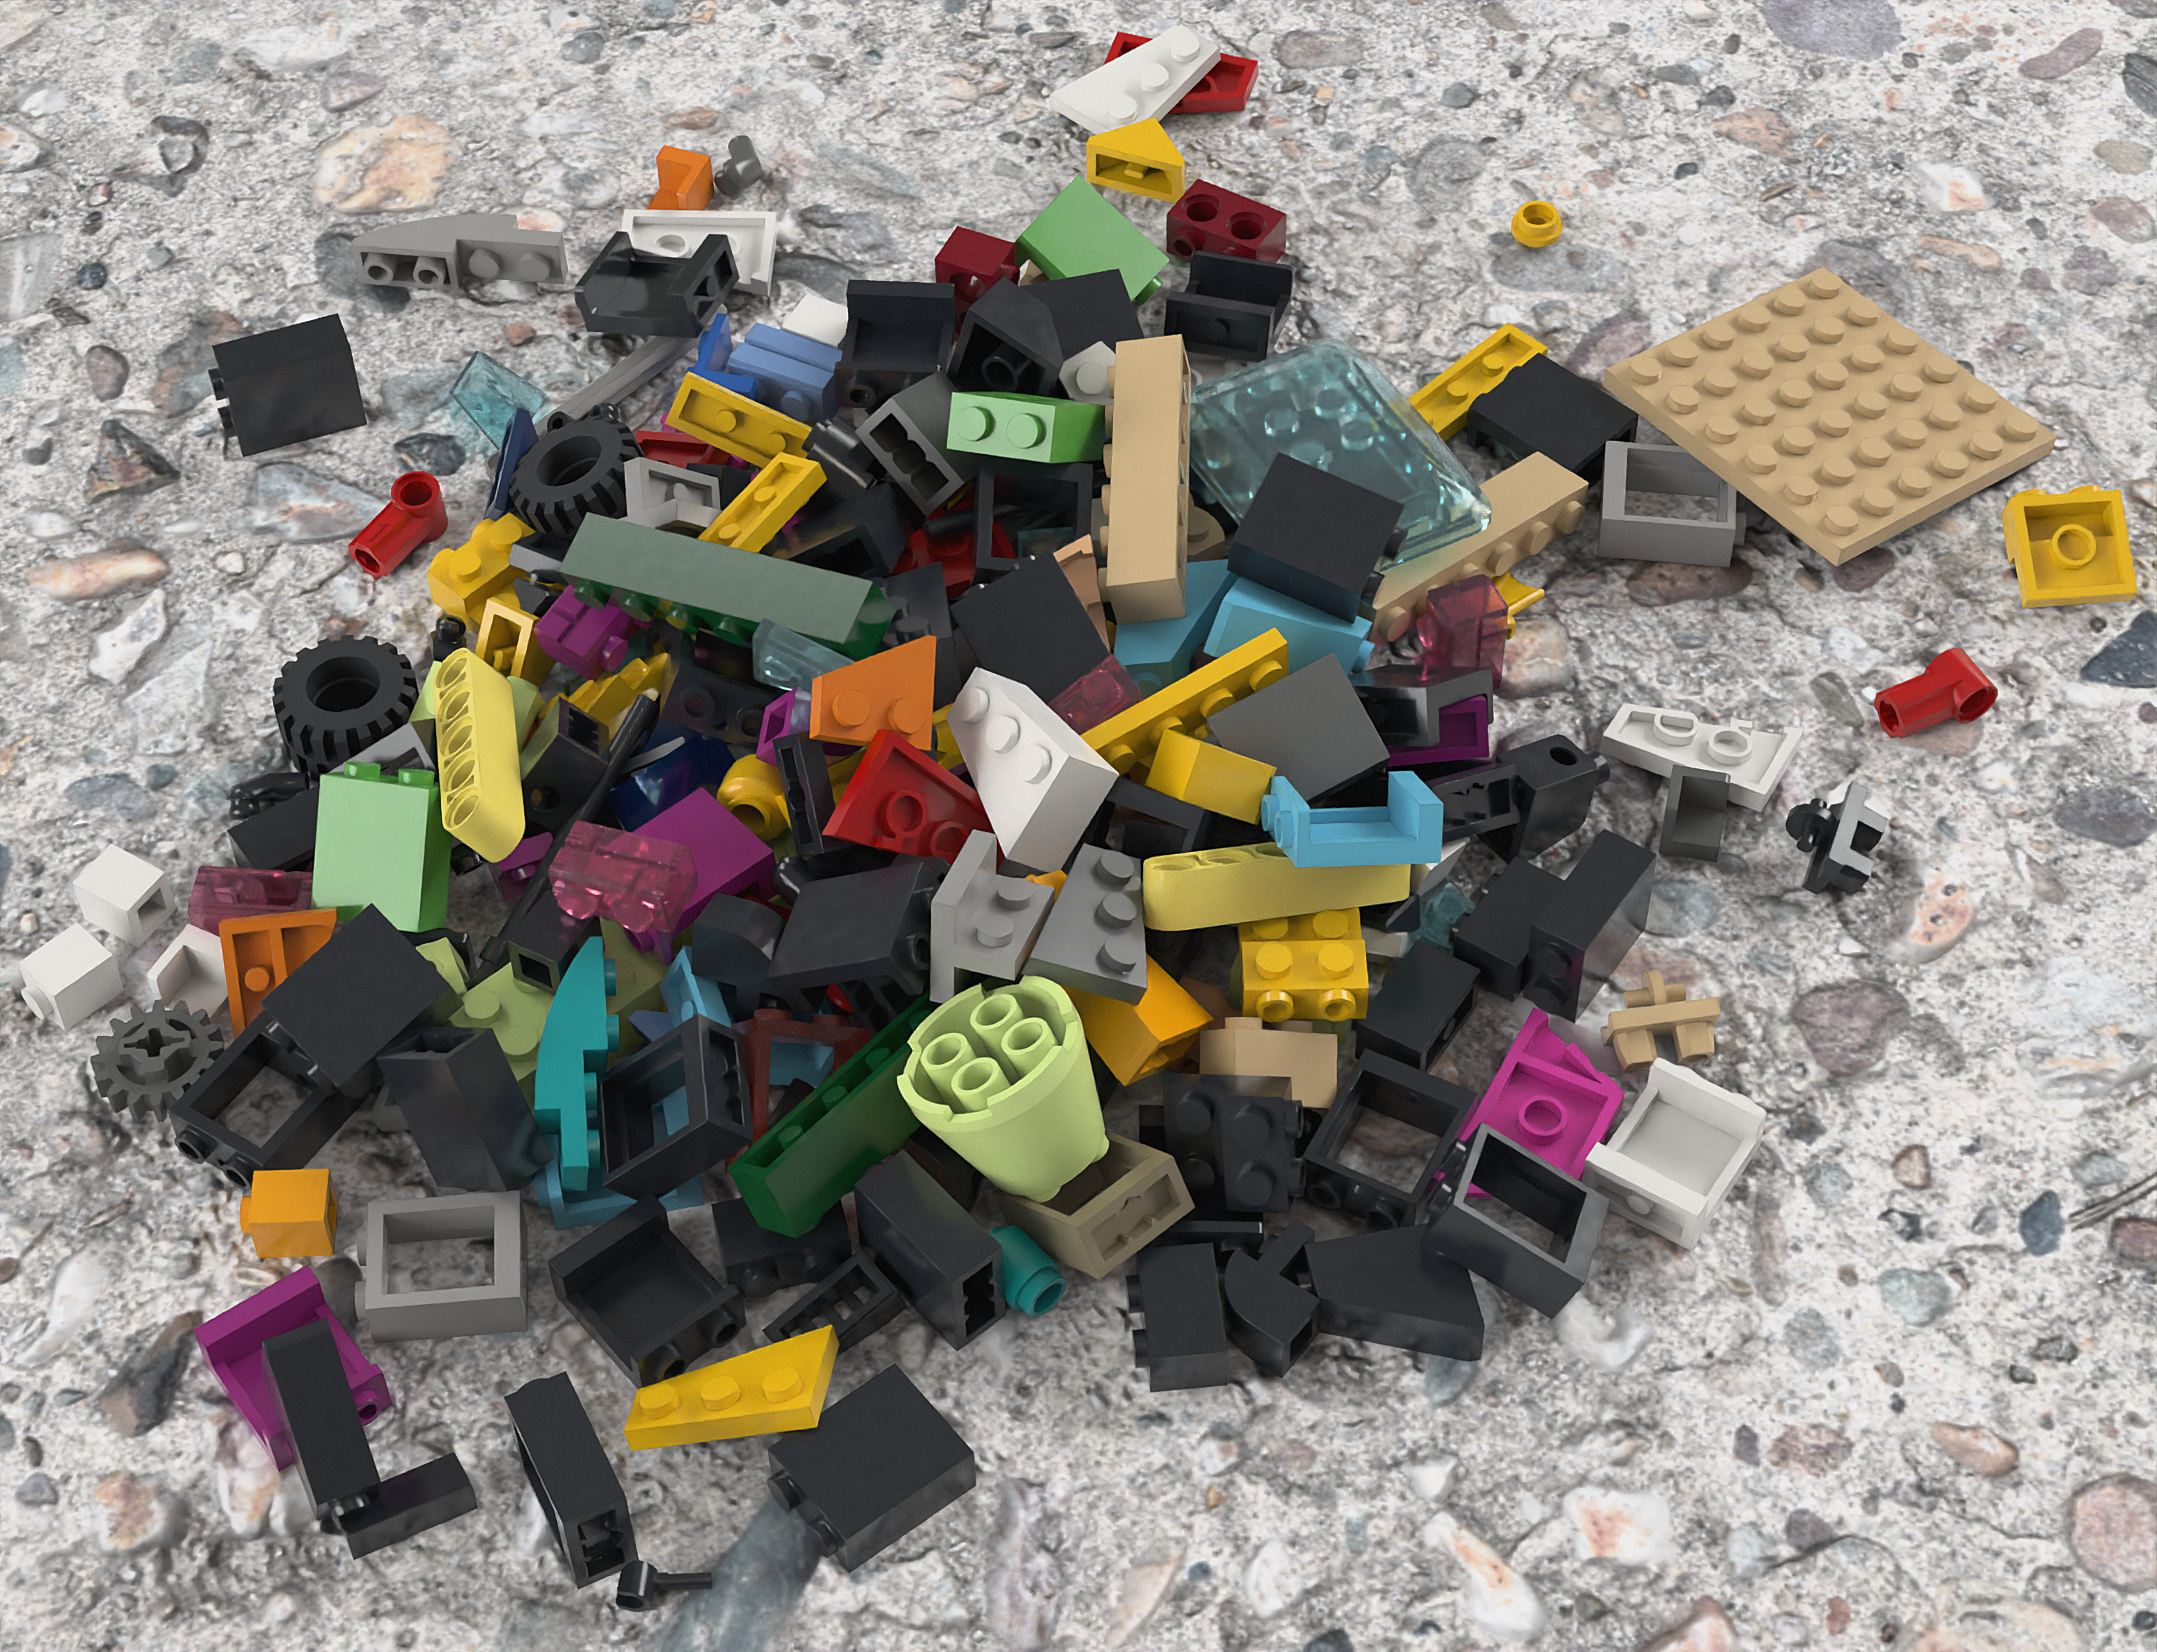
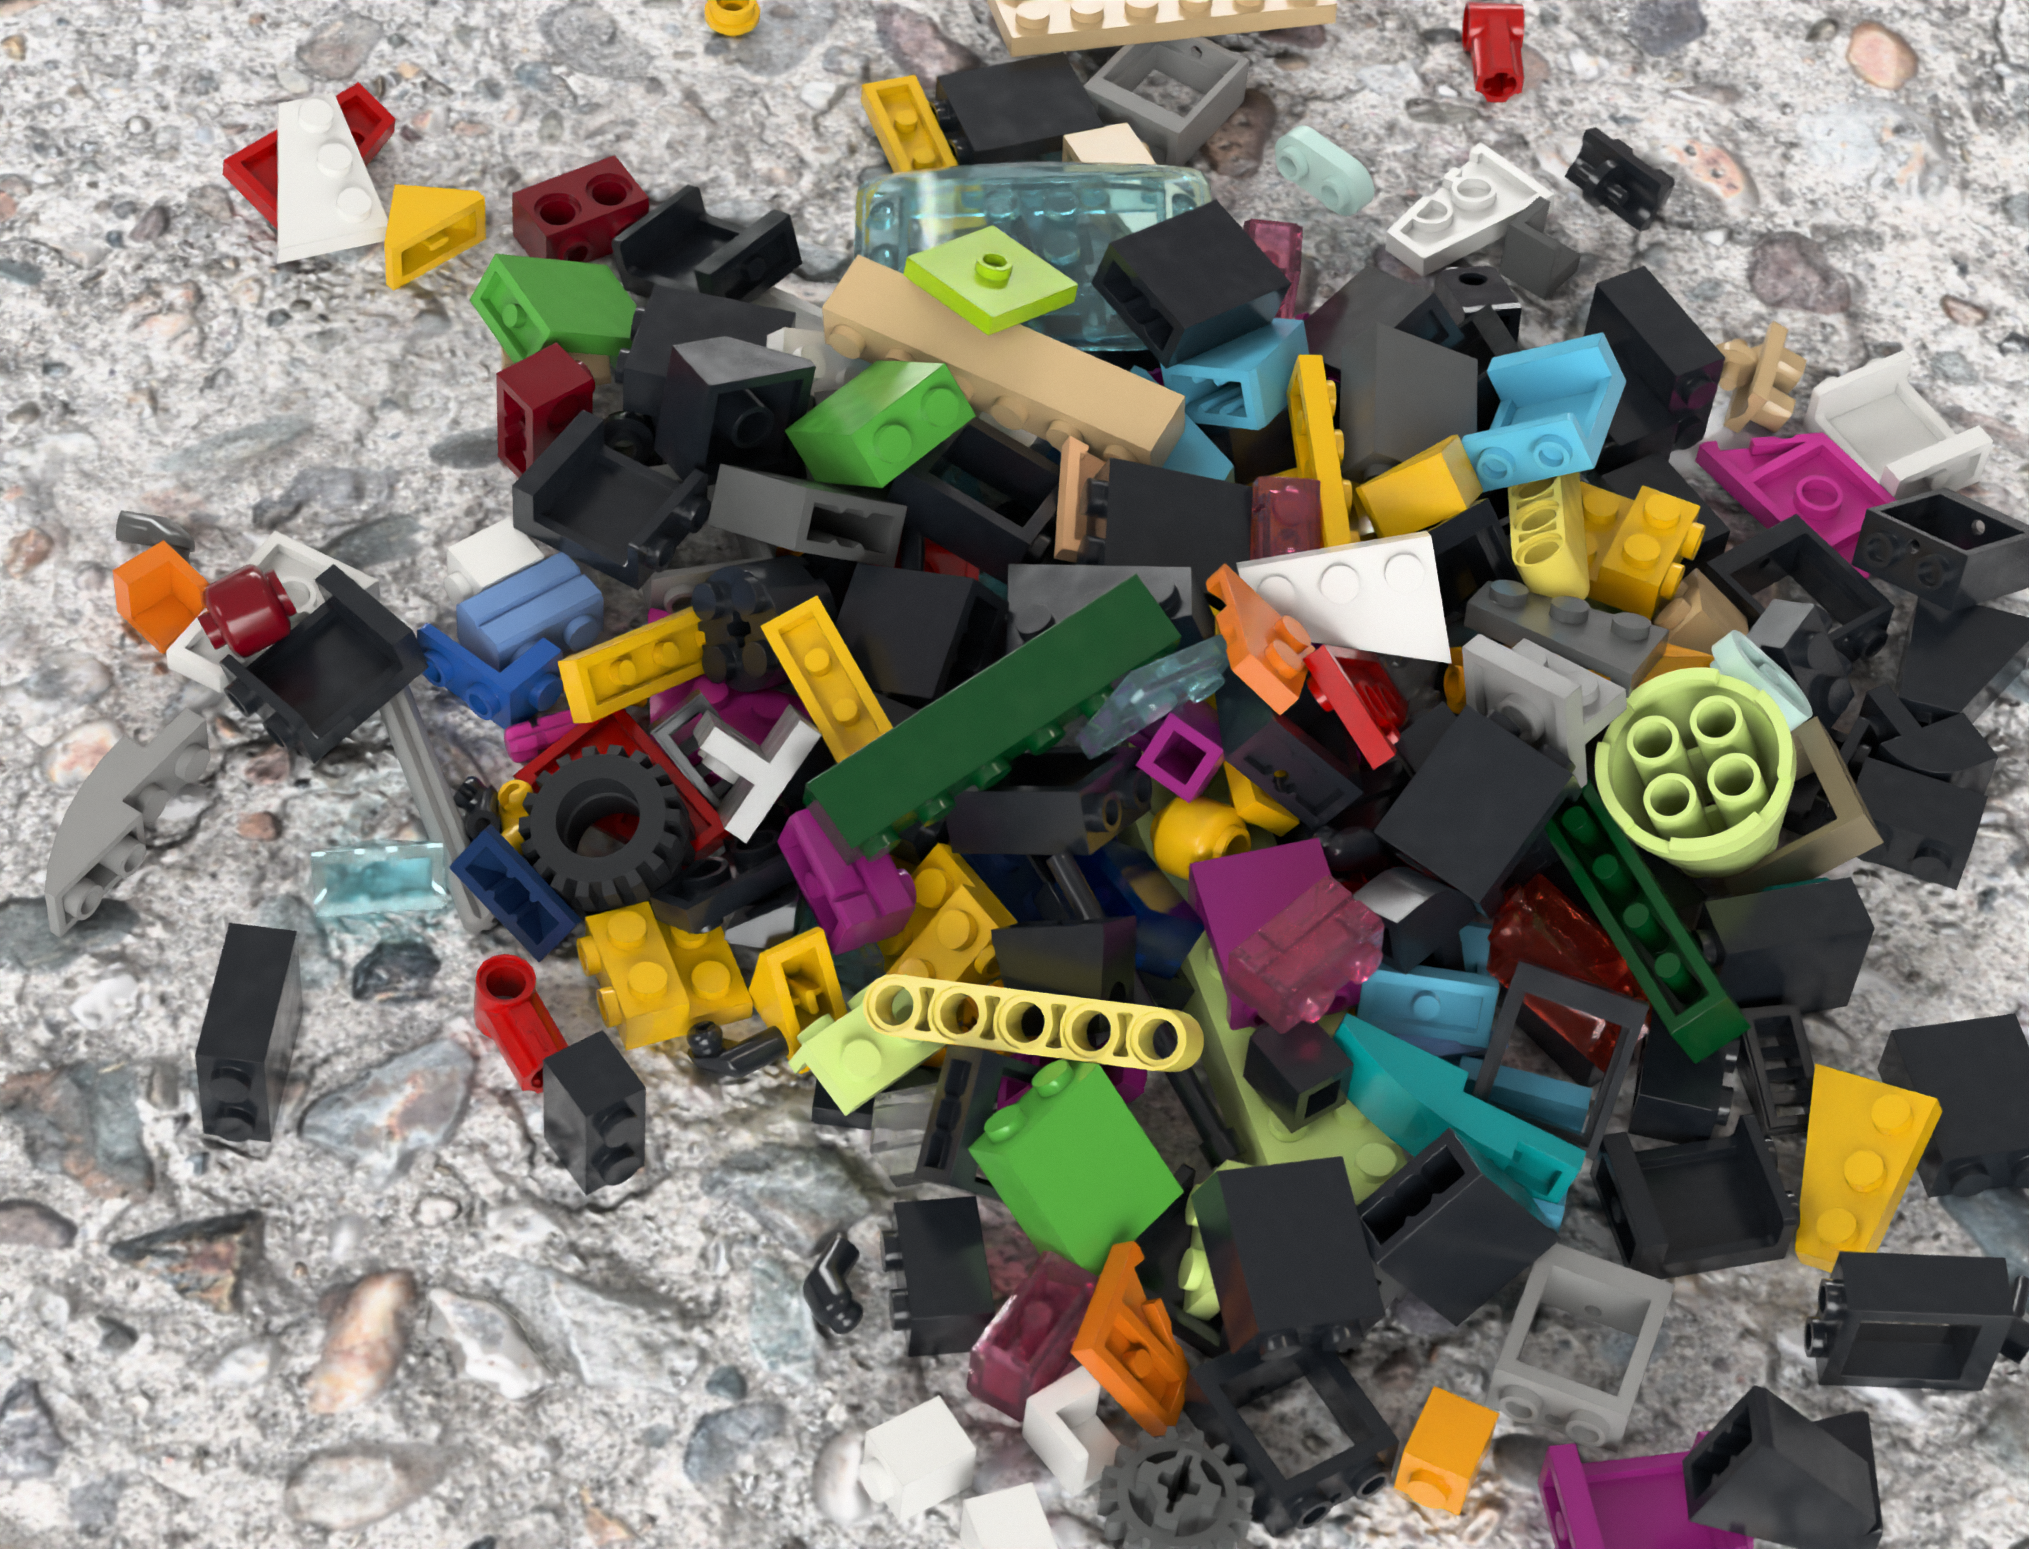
camera: 70 degrees left, 0 degrees up
(320, 582) = (594, 1112): none -> black brick
(337, 679) = (793, 1117): black tyre -> none
(666, 220) = (246, 611): none -> dark red head
(1165, 1087) = (1743, 660): none -> light aqua plate
(1210, 415) = (990, 280): none -> lime plate
(1668, 622) = (1324, 170): none -> light aqua plate

